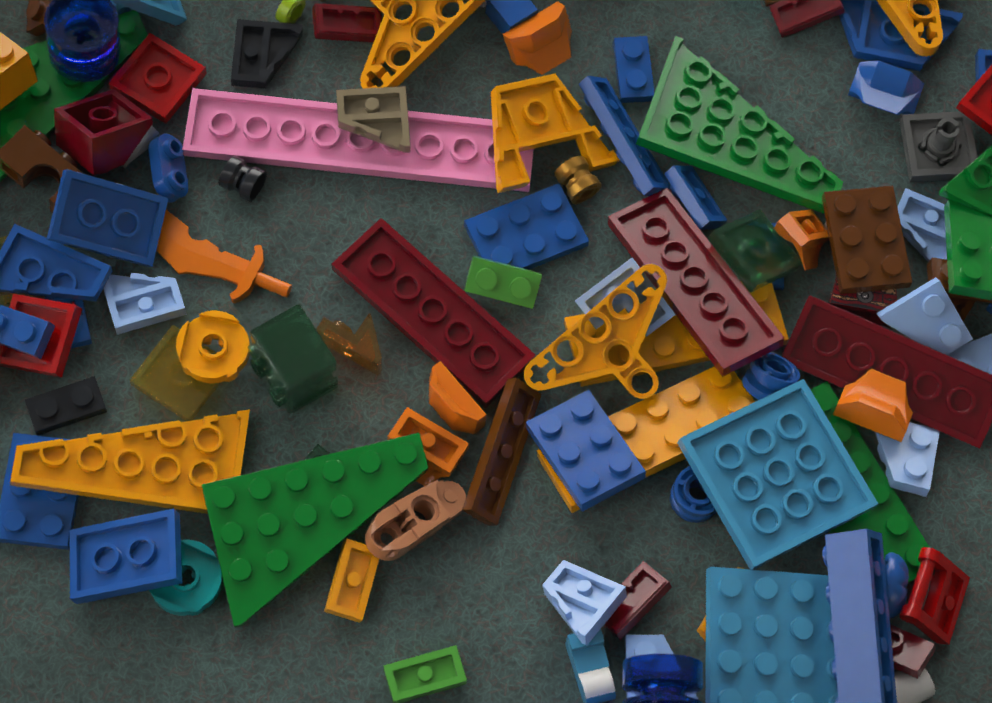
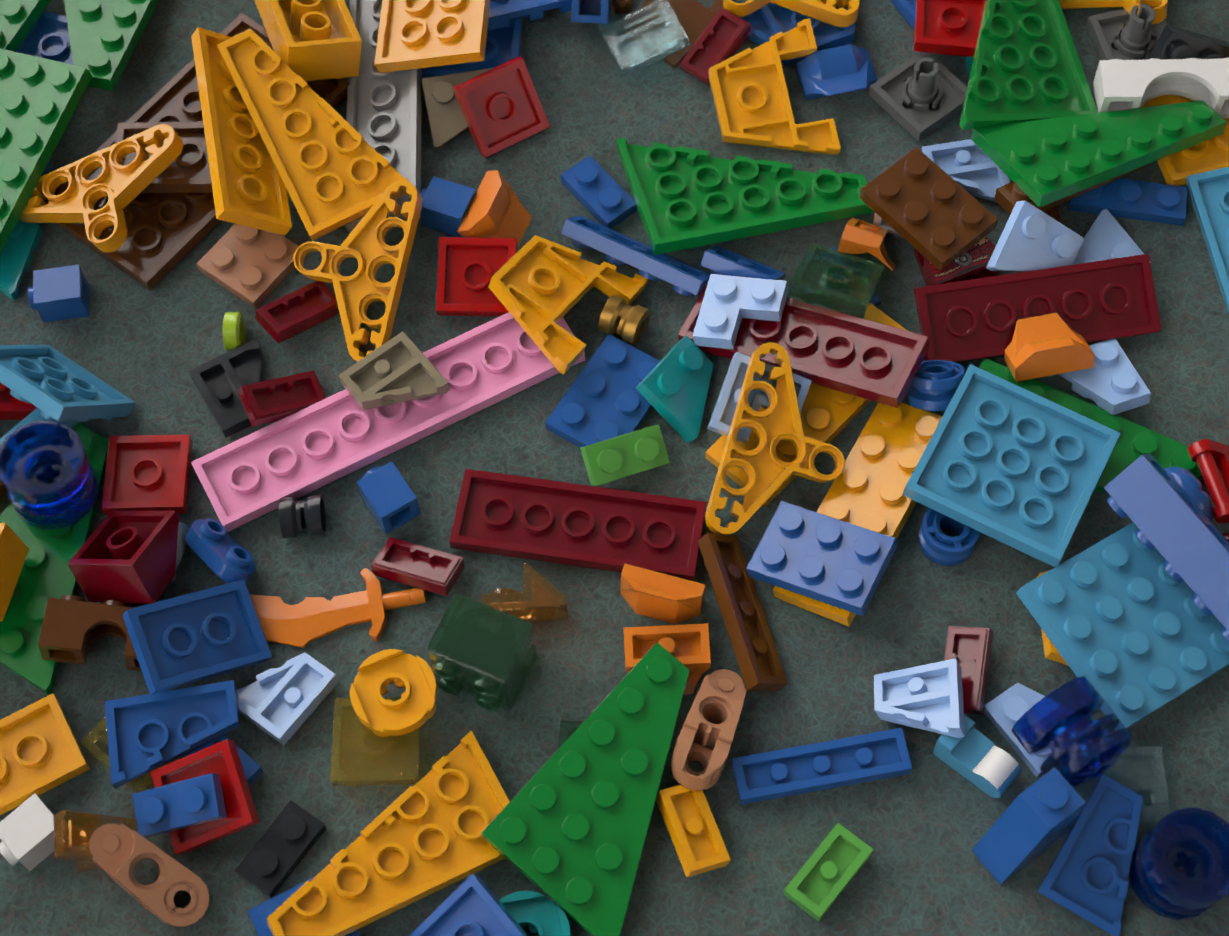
camera: 25 degrees left, 5 degrees down
(288, 80) = (280, 397): none -> dark red plate
(297, 267) = (418, 566): none -> dark red plate
(312, 203) = (388, 497): none -> blue brick
(476, 598) = (821, 766): none -> blue plate
(487, 66) = (465, 274): none -> red plate
(580, 257) = (680, 387): none -> teal wing
(664, 215) = (734, 298): none -> light blue plate
(804, 70) = (755, 101): none -> light orange wing

